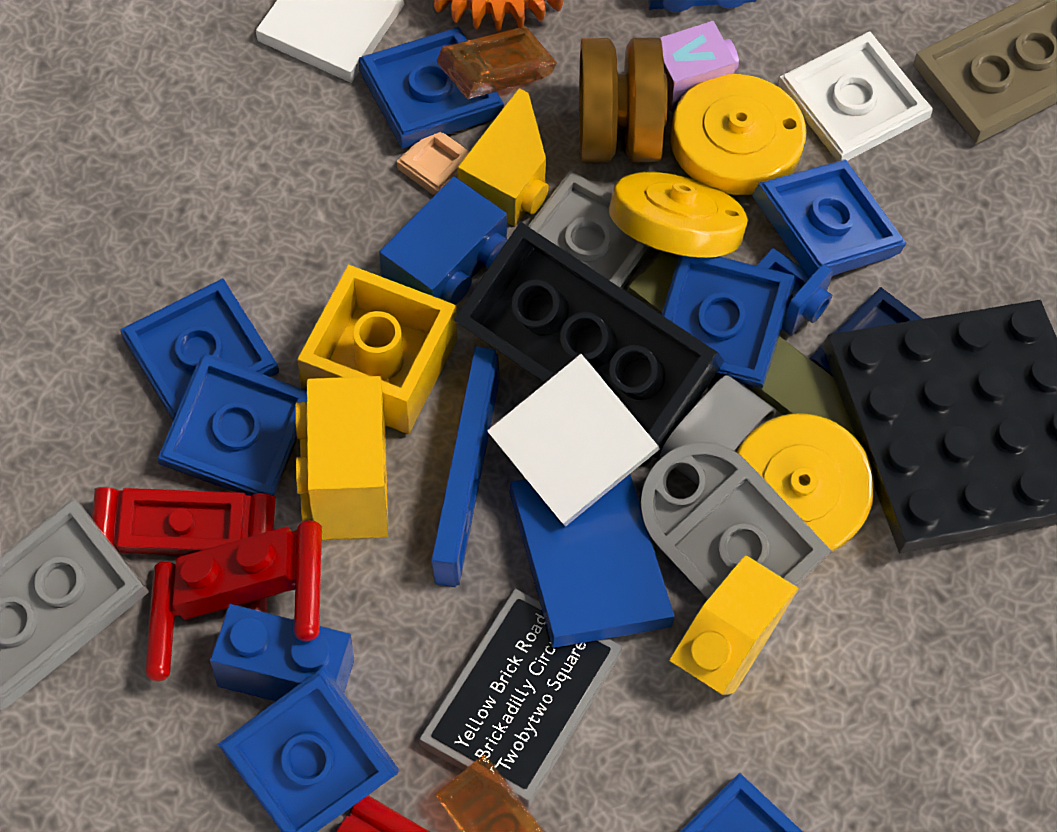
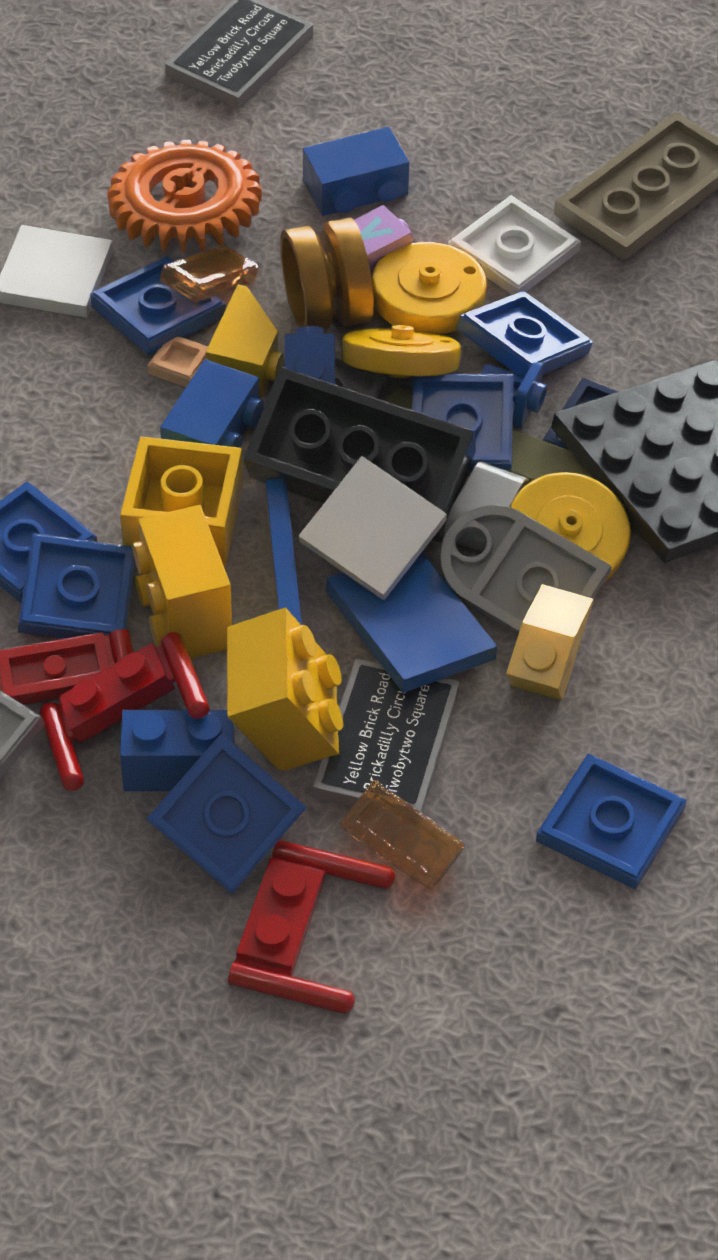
camera: 15 degrees left, 10 degrees down
(412, 621) = (283, 690): none -> yellow brick
(571, 204) = (311, 353): none -> blue bracket

